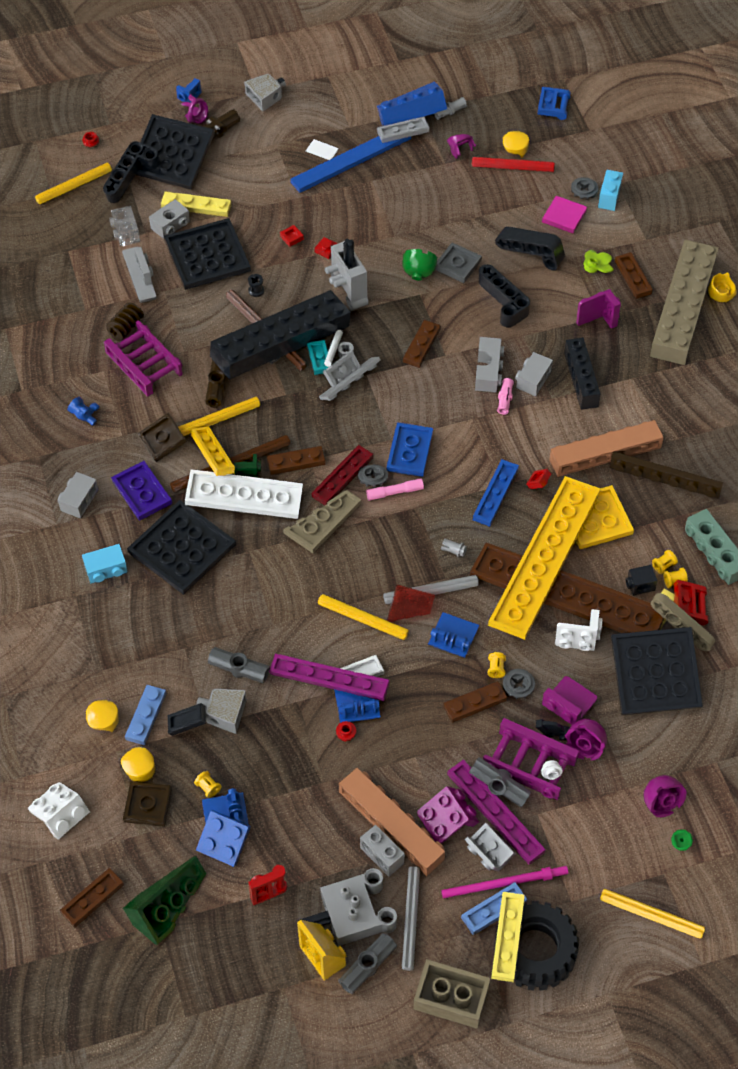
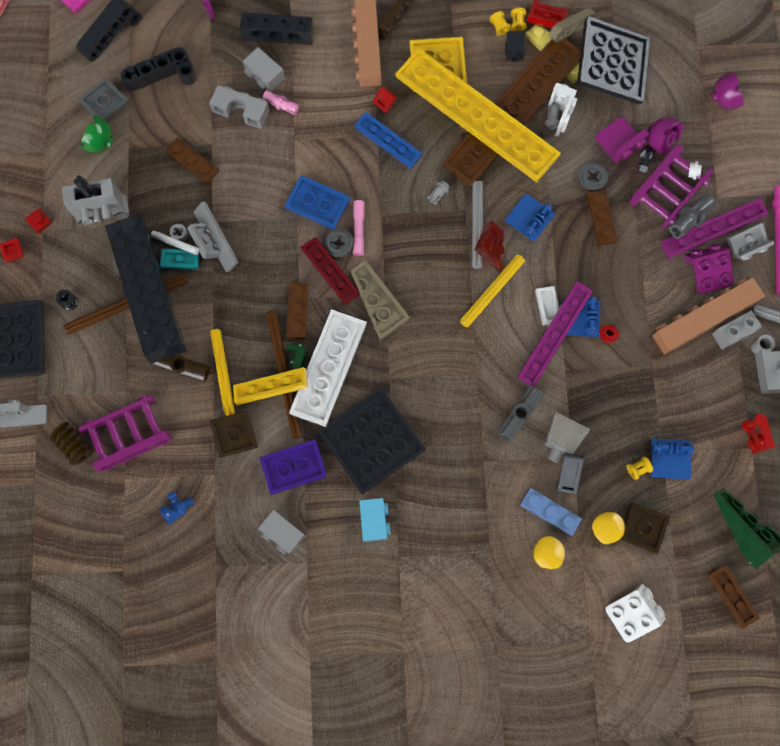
camera: 75 degrees left, 20 degrees up
(223, 838) = (700, 464): plate -> none
(496, 665) = (572, 189): yellow bush -> none
(681, 840) = (767, 92): green tile -> none

